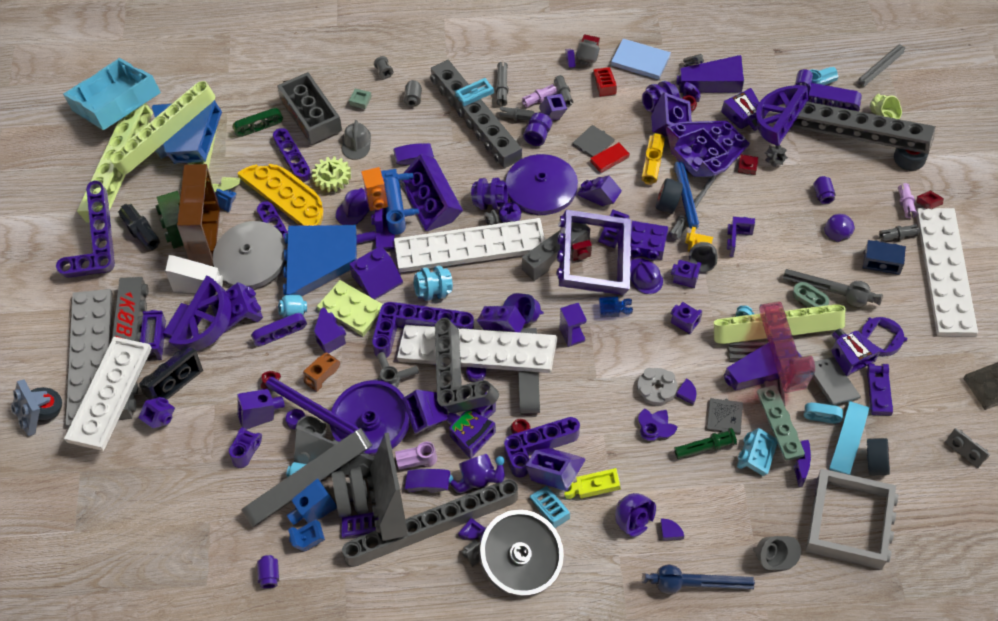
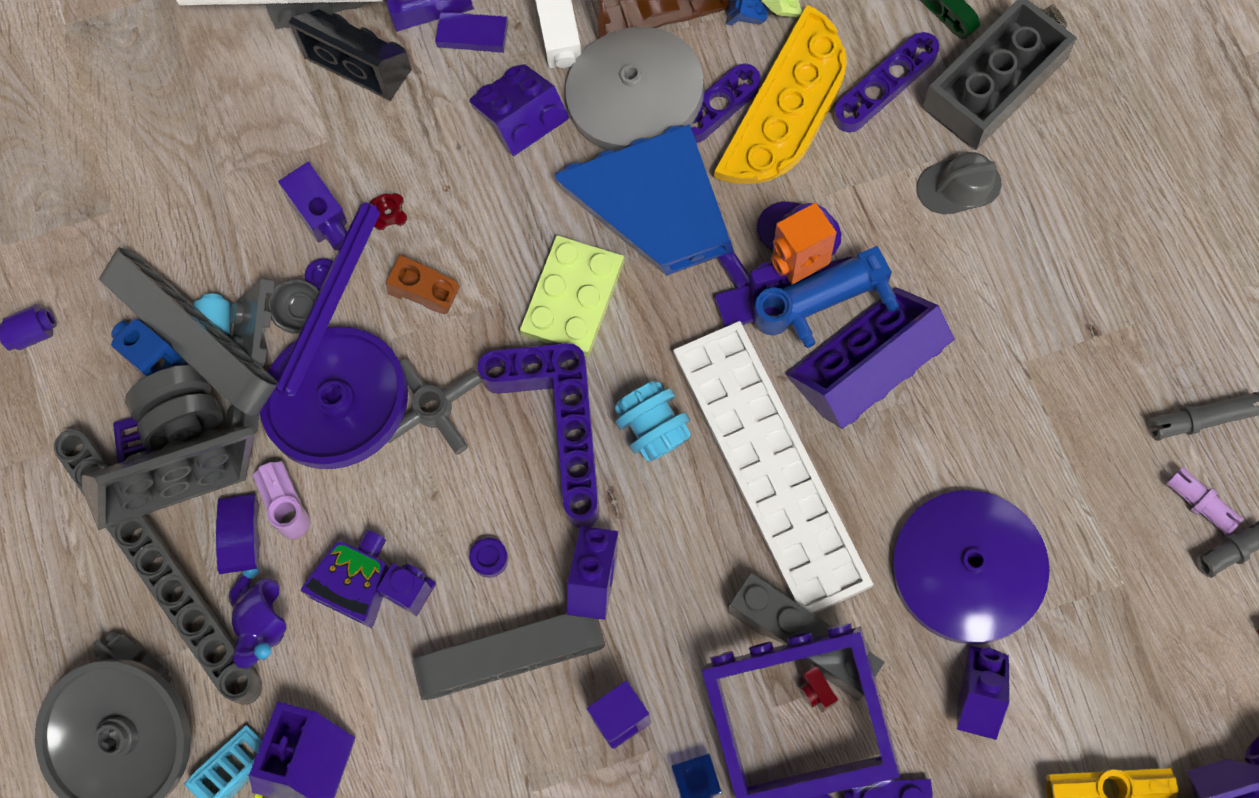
camera: 80 degrees right, 15 degrees up
(157, 412) = (276, 58): dark purple brick -> none
(196, 311) = (512, 50): dark purple window -> none
(246, 444) = (252, 215): dark purple piece -> none
(272, 333) = (490, 189): dark purple beam -> none
(291, 304) = (540, 194): medium azure head -> none
(307, 536) = (96, 364): blue bracket -> none
(328, 333) = (503, 270): dark purple slope -> none
(340, 174) = (858, 164): yellowish green gear -> none
(360, 98) = (1064, 156): sand green plate -> none
(375, 273) = (652, 313): dark purple slope -> none
(383, 67) = (1161, 173): dark grey bush -> none
(408, 153) = (962, 295): dark purple slope -> none
(412, 93) = (1112, 248): dark grey brick -> none
(424, 410) = (361, 491): dark purple torso -> none
(449, 374) = (439, 507): dark grey beam -> none
(471, 530) = (161, 641): dark purple tile -> none
(475, 94) = (1147, 365): medium azure tile -> none
(477, 116) = (1190, 293): dark grey brick -> none
(483, 349) = (524, 551): white plate -> none
(489, 193) = (900, 468): dark purple piece -> none
(491, 218) = (845, 489): dark grey bush -> none
(509, 213) = (878, 513): dark purple piece -> none
(516, 113) = (1136, 467): dark grey axle -> none
(519, 425) = (382, 672): dark red plate -> none
(526, 305) = (638, 607): dark purple piece -> none
(538, 129) = (1112, 521): dark purple wheel -> none
(553, 106) = (1171, 537): brick -> none
(565, 432) = (355, 722): dark purple beam -> none
(593, 141) = (1123, 647): dark grey piece -> none
(609, 157) = (1089, 693): red tile -> none
(614, 213) = (932, 752): dark purple slope -> none

